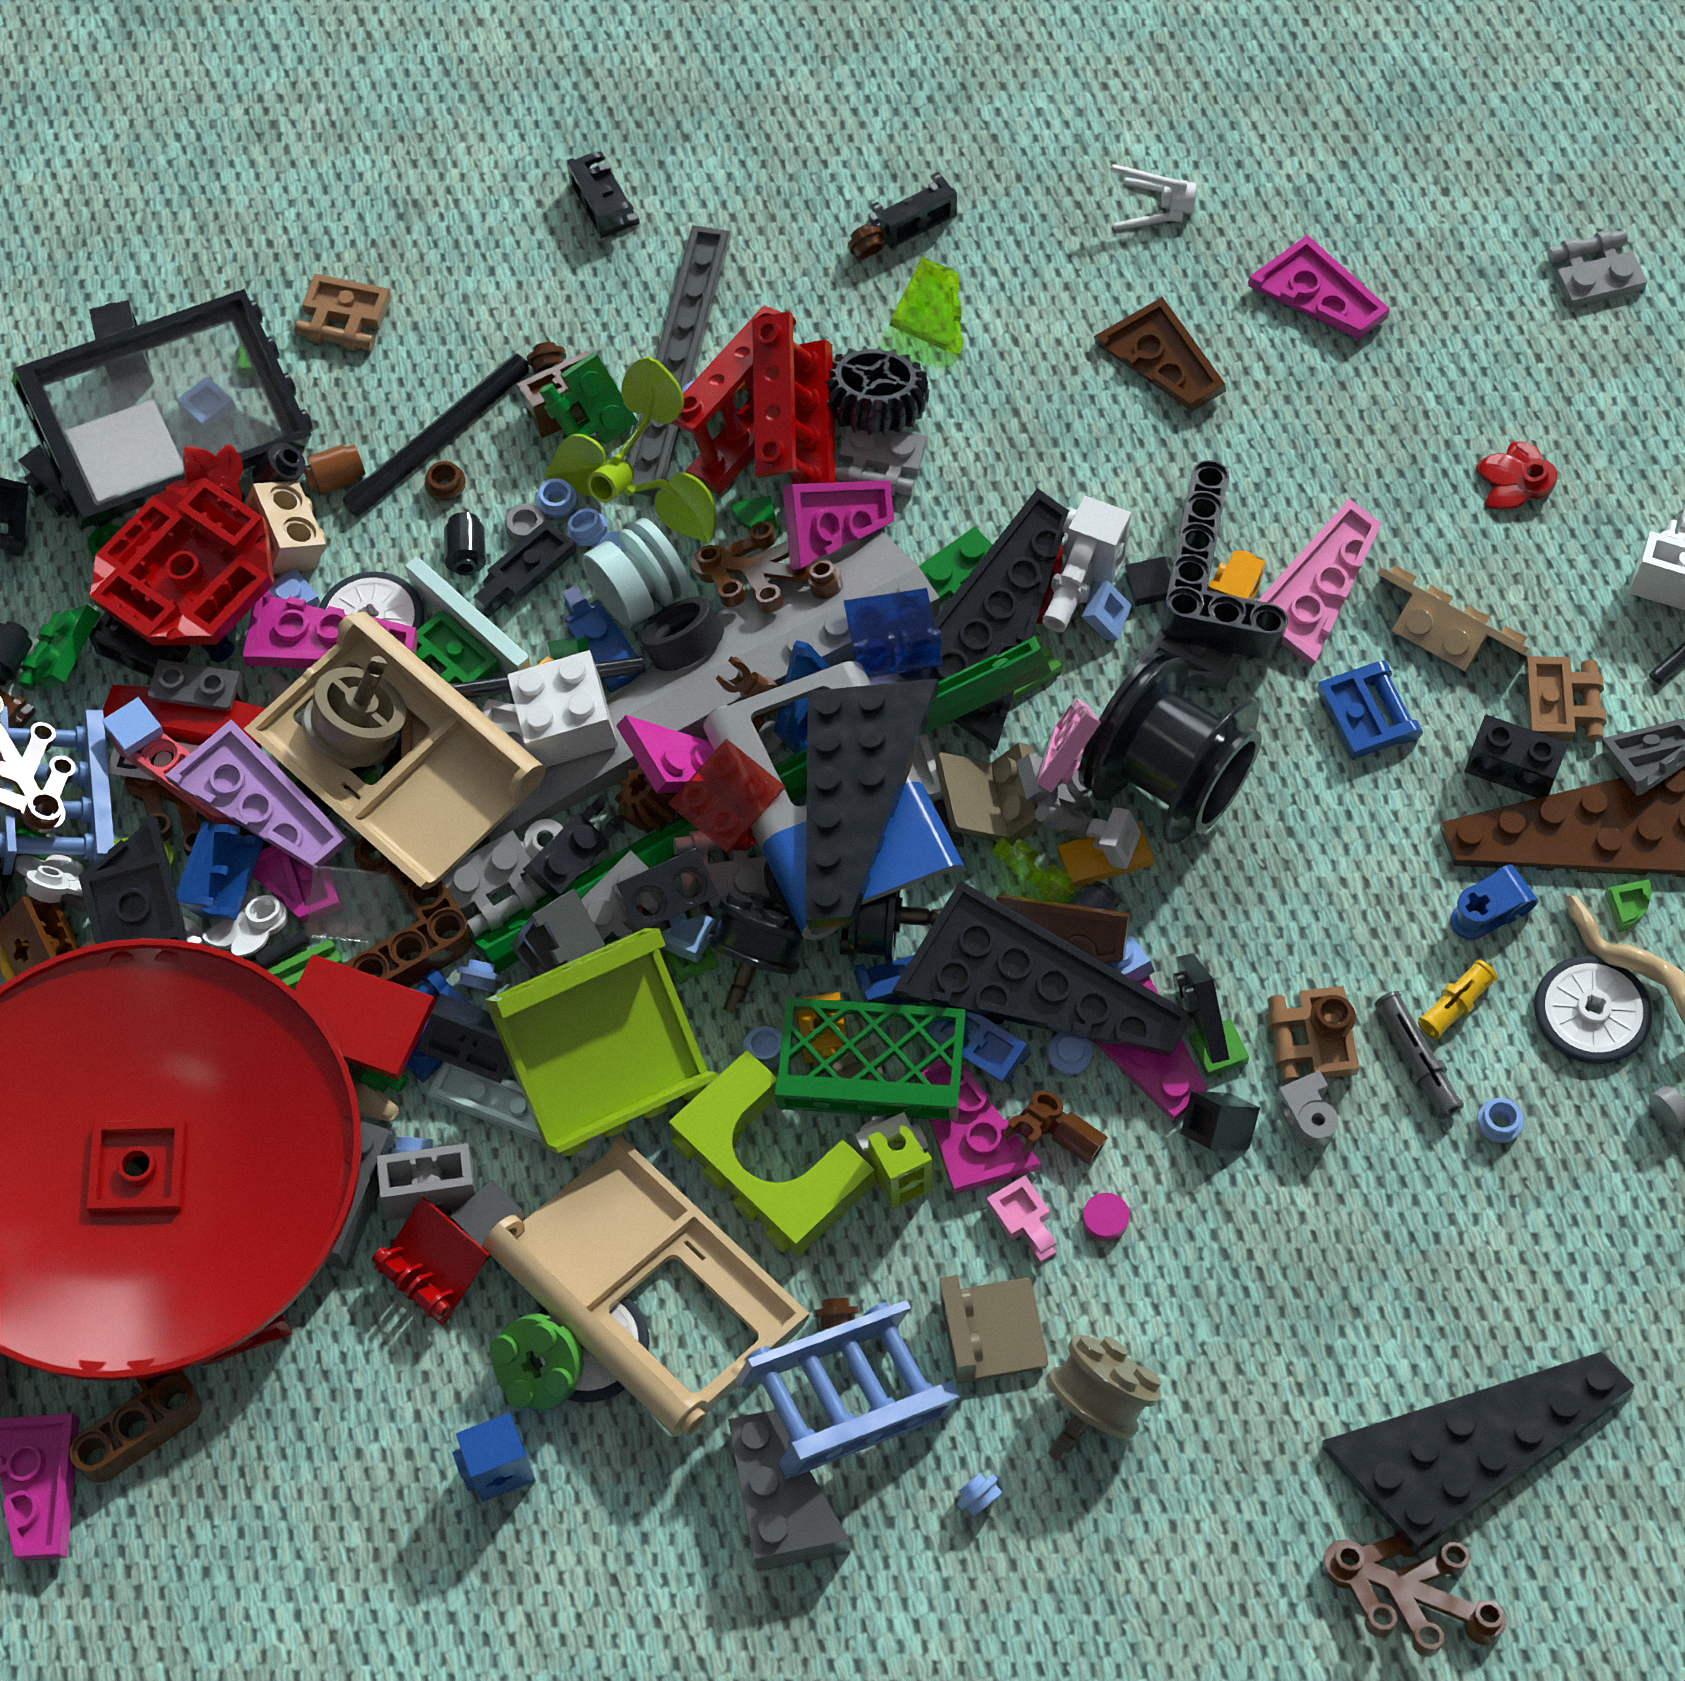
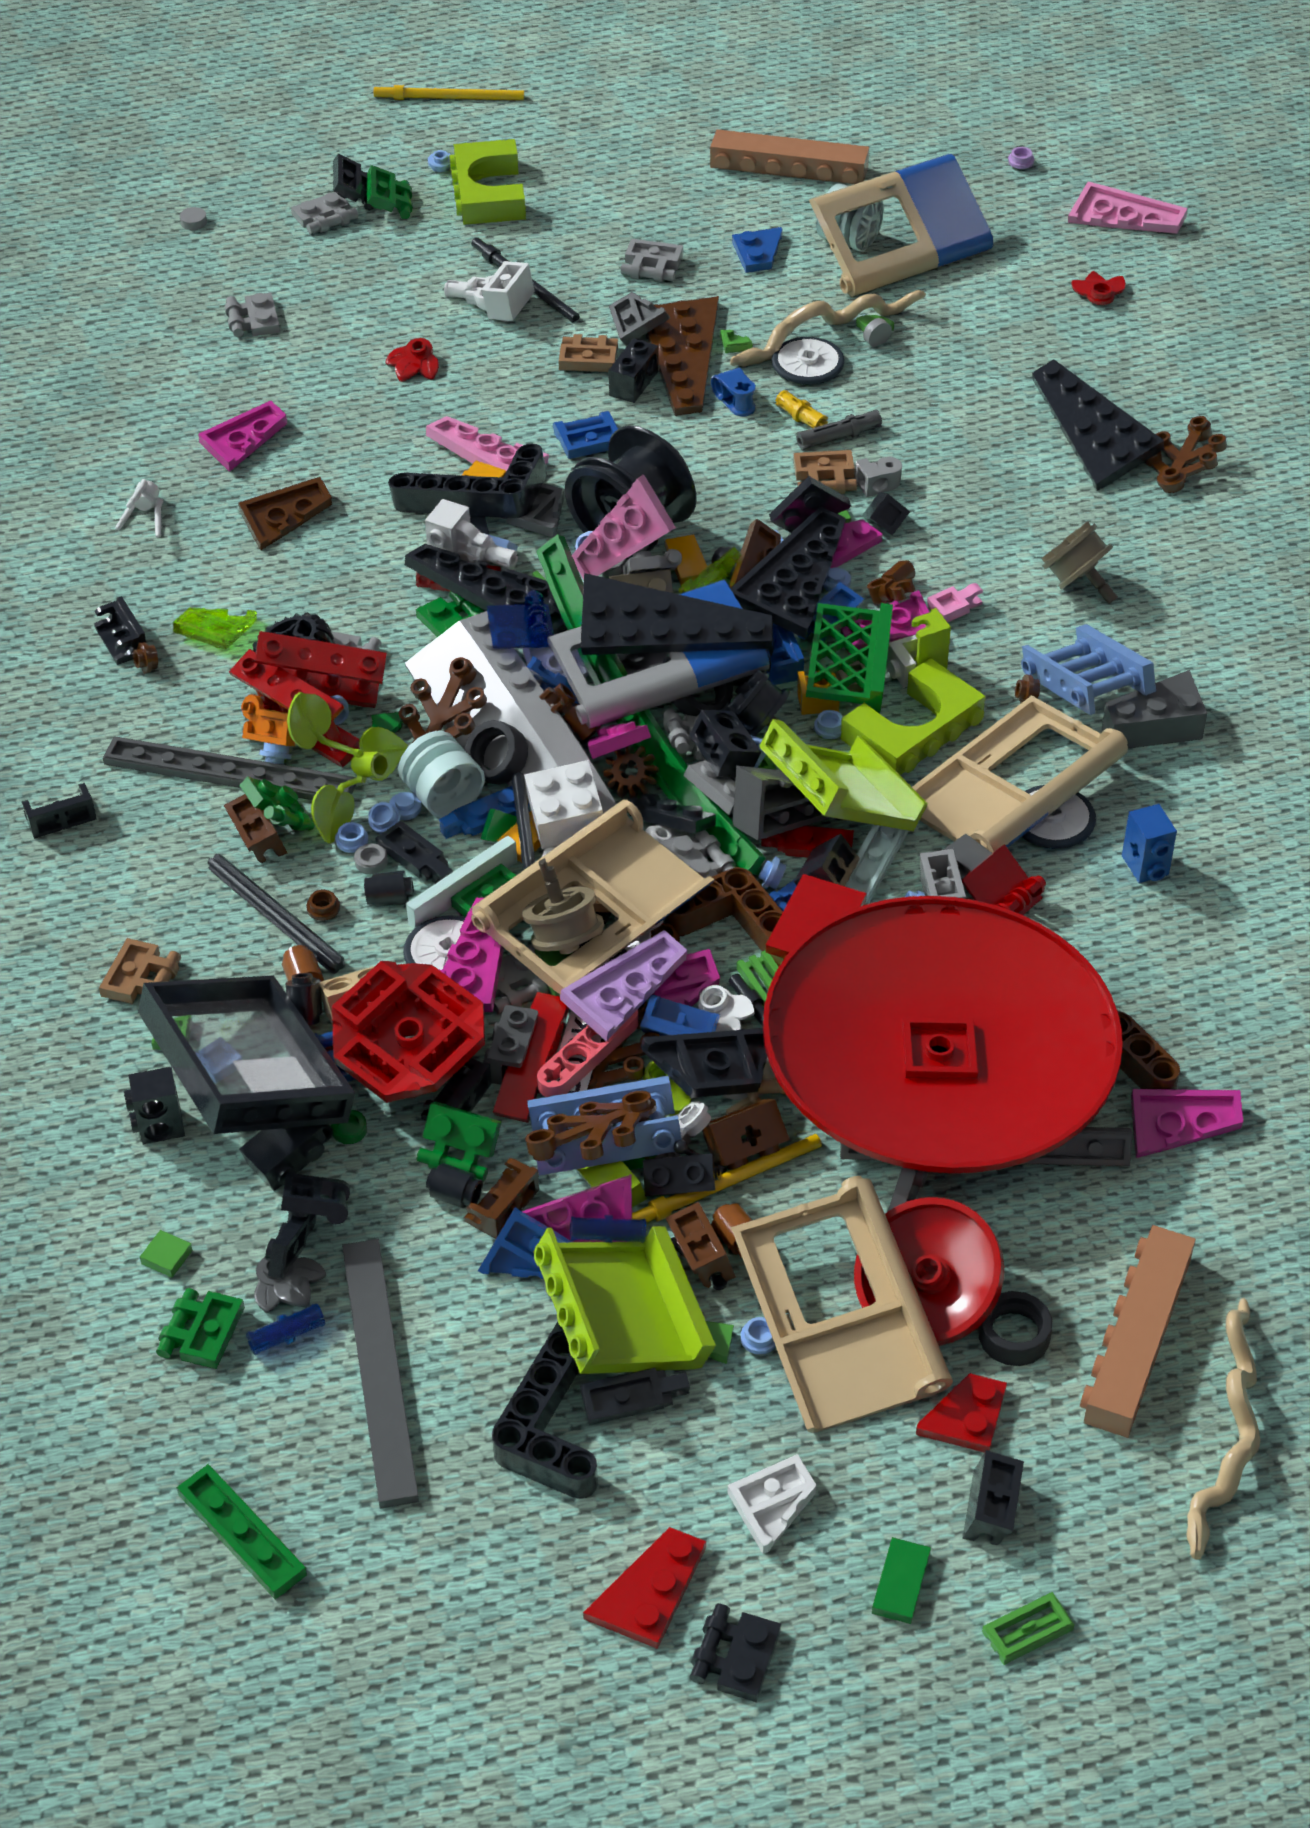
camera: 90 degrees left, 15 degrees down
(133, 726) = (553, 1065): light blue tile -> none
(222, 469) = (320, 1026): red plate -> none
(348, 904) = (713, 942): clear piece -> none
(517, 1376) = (1090, 825): bright green plate -> none
(545, 356) = (217, 841): reddish brown plate -> none
(727, 797) = (656, 699): clear red hinge -> none
(831, 515) = (408, 665): dark pink wing -> none
(978, 1493) = (1144, 628): light blue plate -> none
(992, 1328) = (1034, 621): dark tan bracket -> none
(1106, 1216) = (951, 570): dark pink tile -> none
(1116, 837) = (685, 539): white tile -> none
(1332, 1005) = (819, 451): reddish brown plate -> none
(1443, 628) = (529, 398): tan bracket -> none
(1504, 1108) = (882, 400): light blue plate -> none

